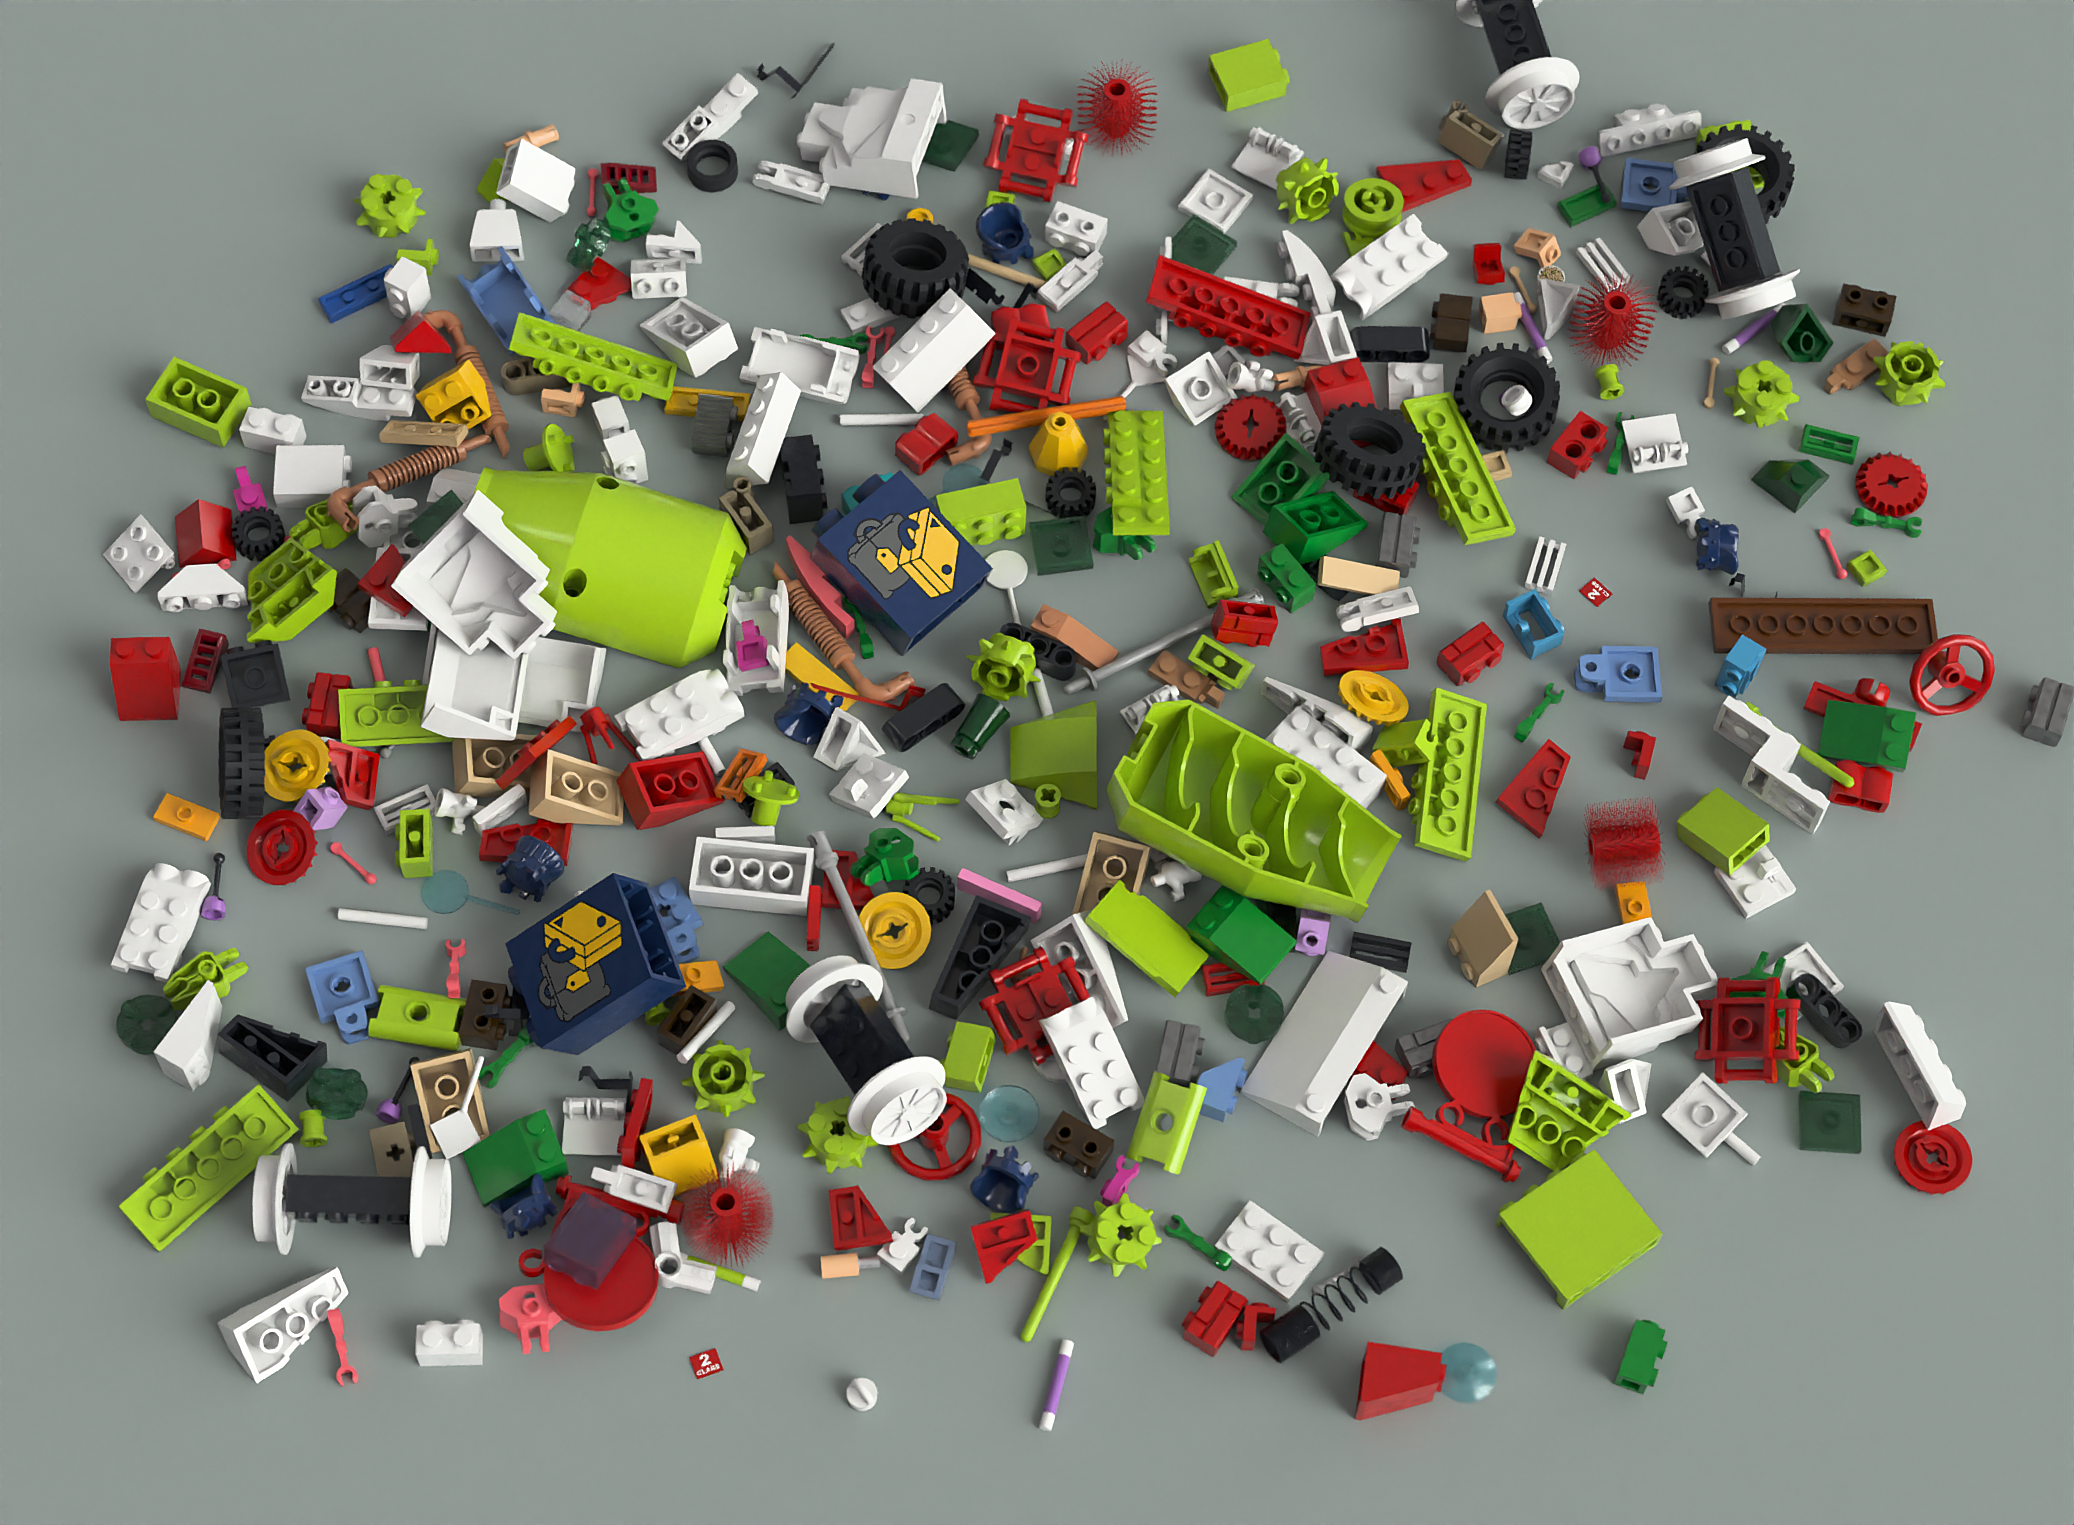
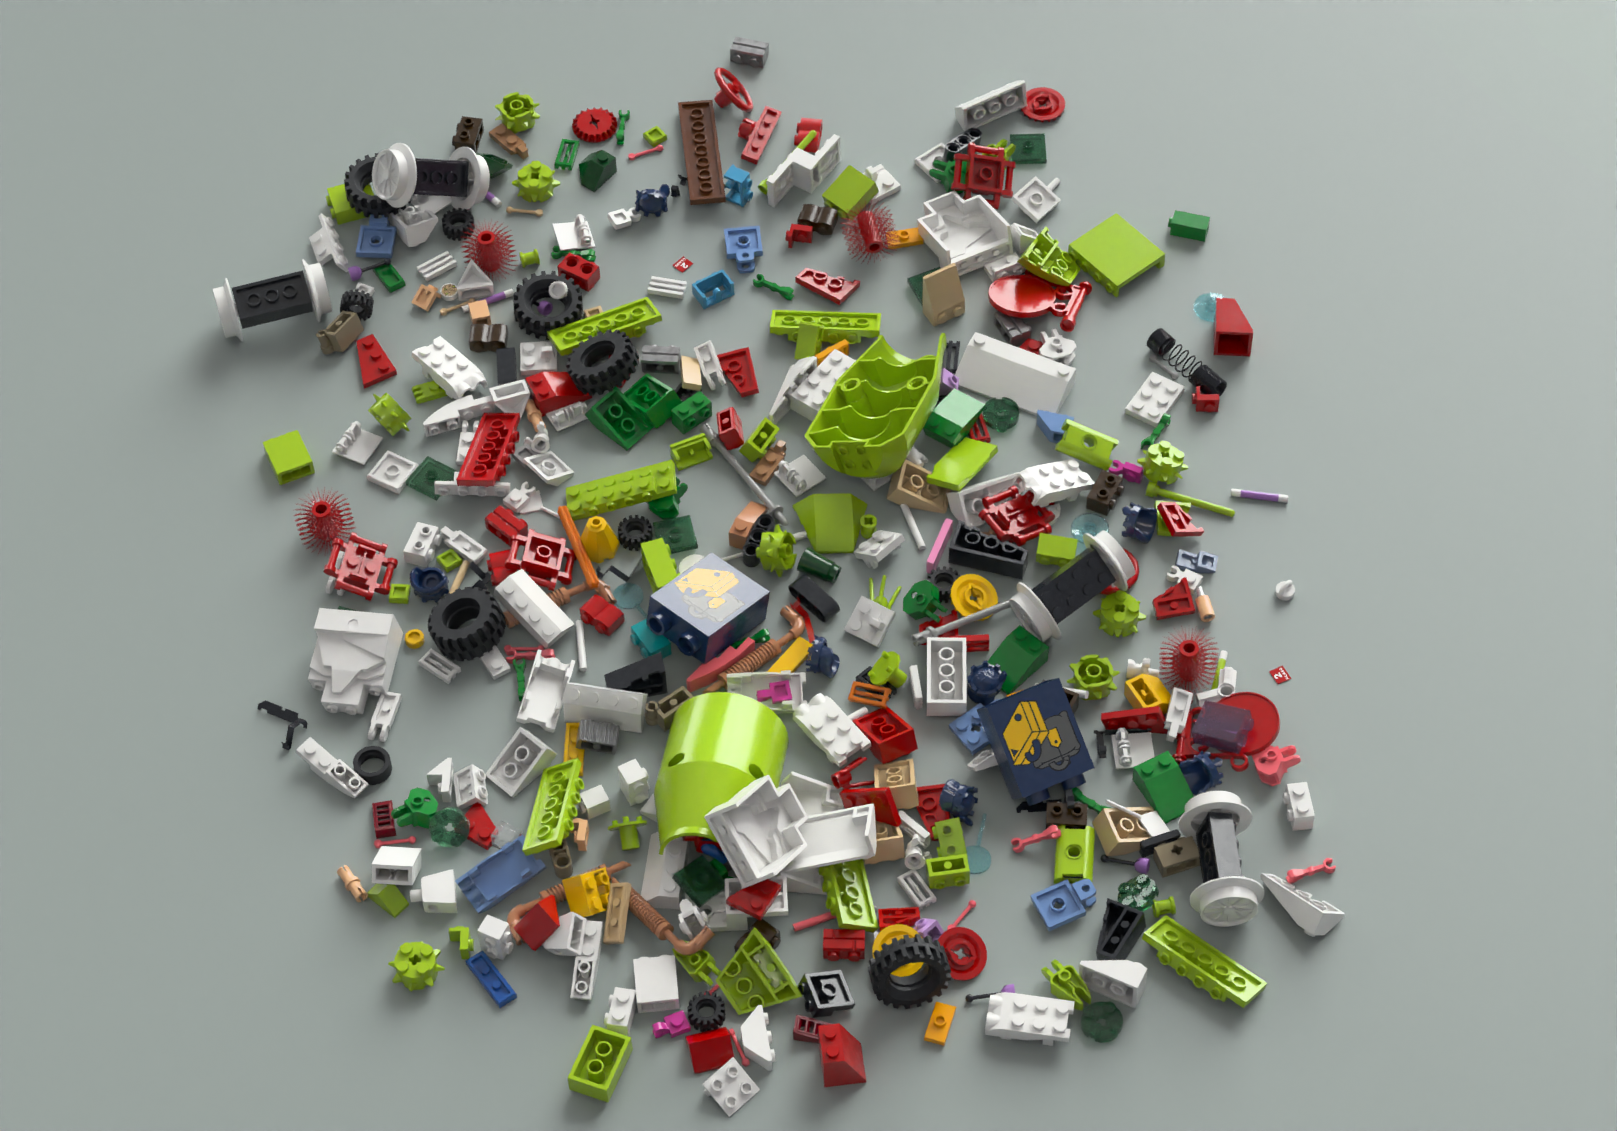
camera: 90 degrees left, 10 degrees down
(382, 918) = (1001, 892): white bar -> none
(463, 850) = (950, 837): none -> lime brick
(732, 925) = (985, 682): none -> dark blue hair
(846, 741) = (838, 640): white slope -> none
(1178, 1051) = (1036, 448): flat silver brick -> none
(1214, 1318) = (1204, 419): red brick -> none
(1234, 436) = (583, 449): red gear -> none
(1373, 196) = (409, 379): lime wheel -> none
(1373, 697) = (776, 362): yellow gear -> none
(1470, 654) = (737, 318): red brick -> none
(1488, 264) = (442, 322): red bracket -> none
(1674, 782) = (821, 218): none -> dark brown brick
(1867, 734) = (778, 127): green slope -> none

